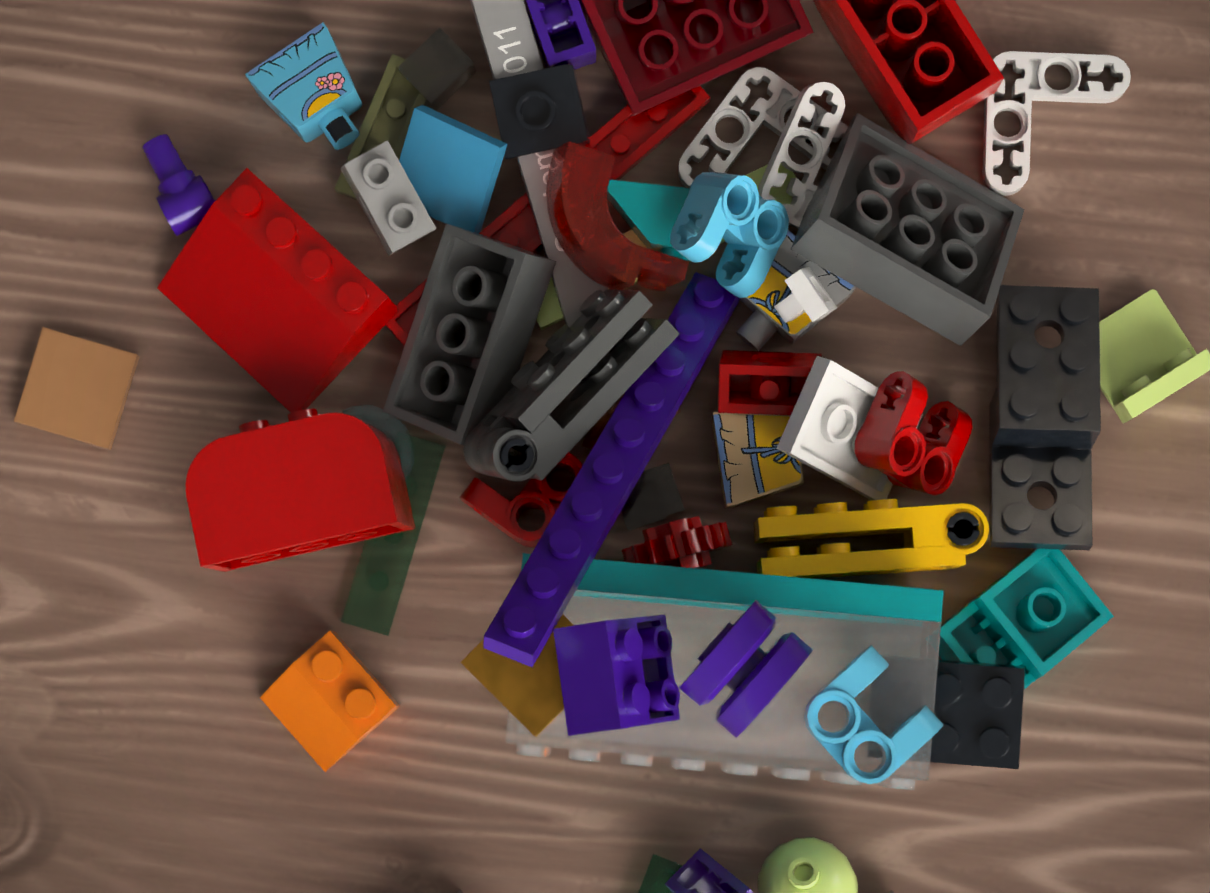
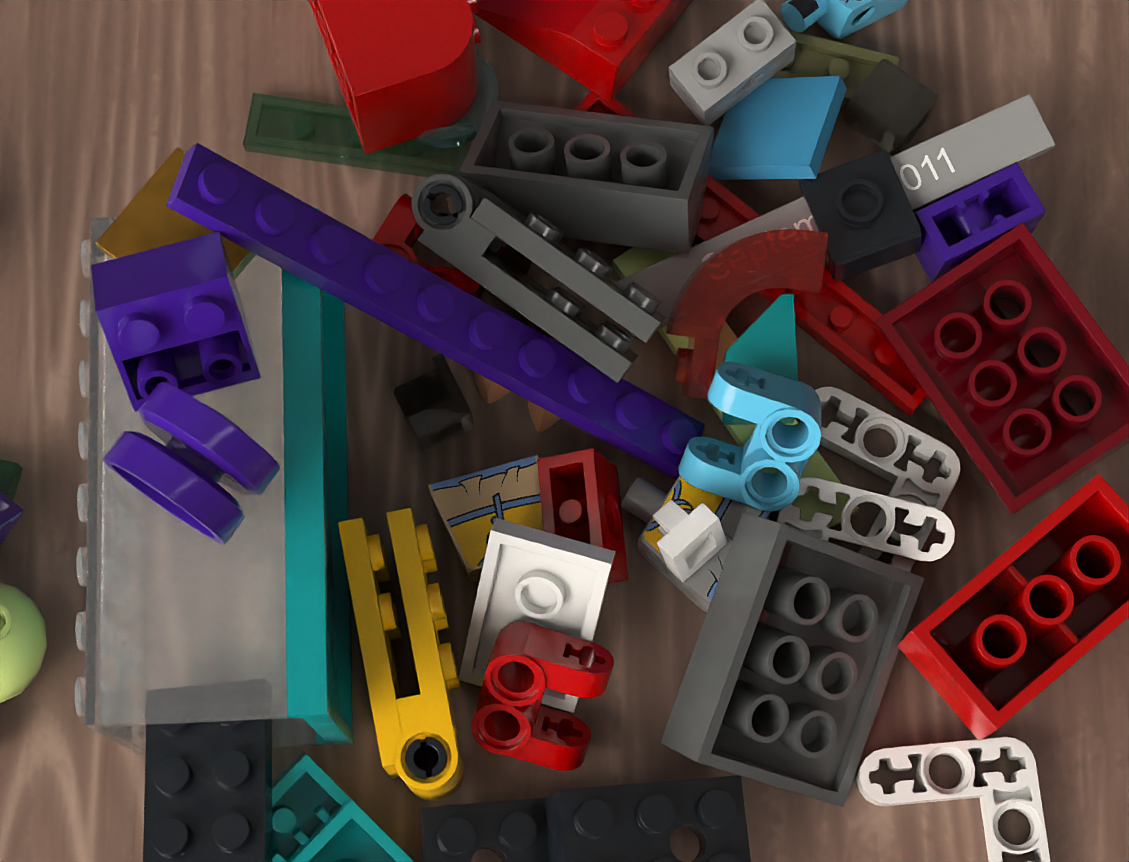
camera: 80 degrees right, 10 degrees down
(329, 700) = (168, 92): orange slope -> none
(679, 544) = (372, 433): red gear -> none
(860, 728) = (137, 623): medium azure piece -> none

